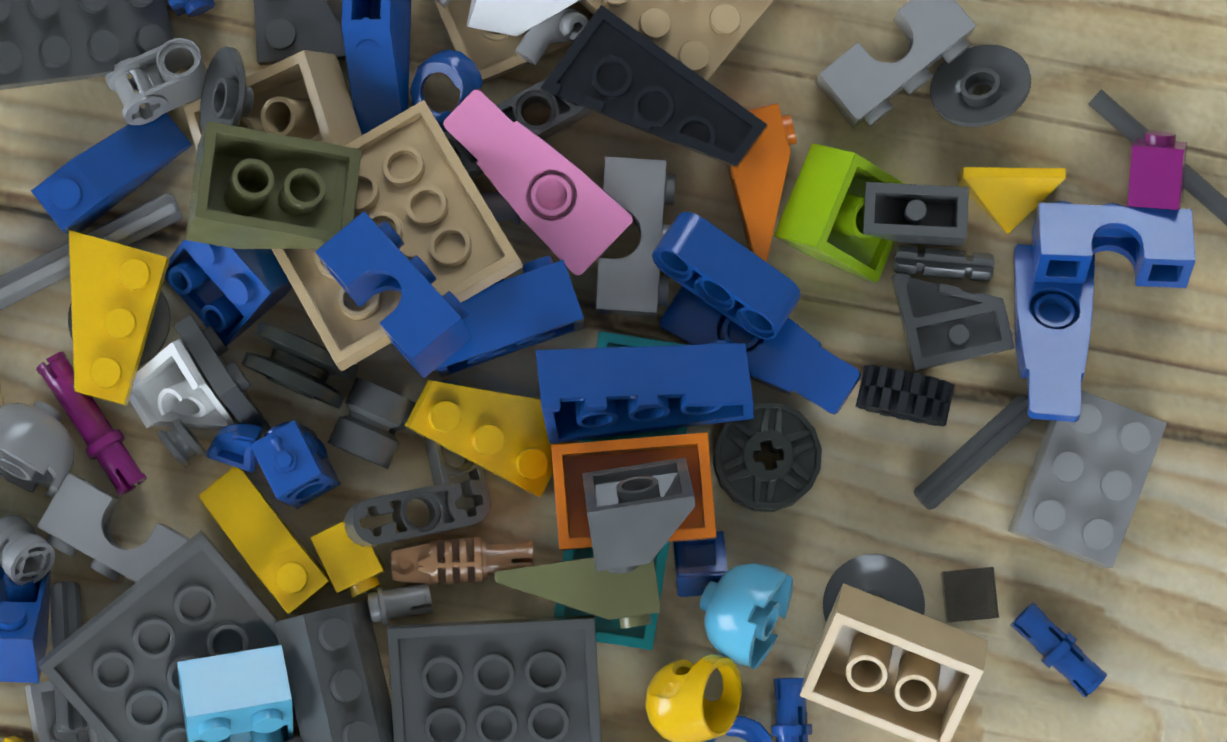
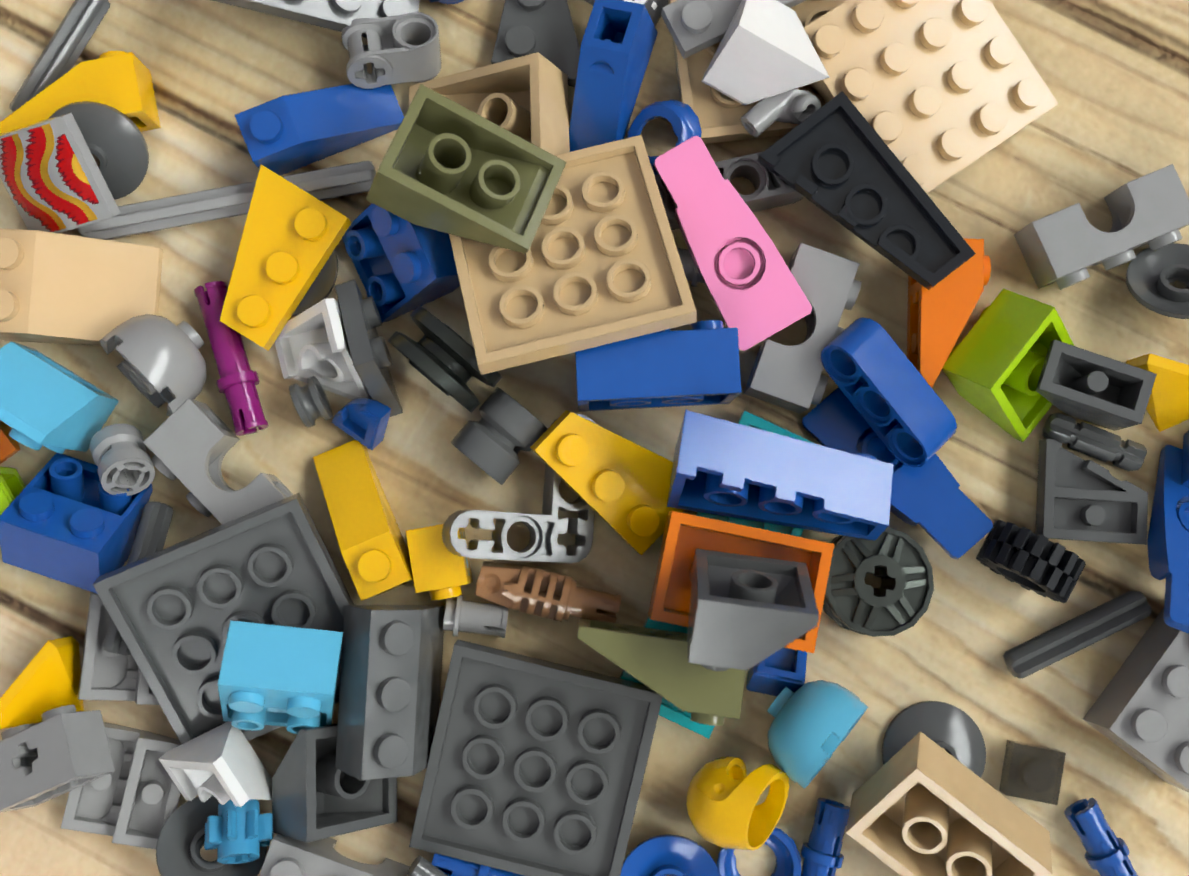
camera: 15 degrees right, 0 degrees up
(225, 91) = (452, 69): dark grey dish -> none
(295, 463) = (412, 453): blue head -> none
(369, 261) = (544, 270): blue arch -> none

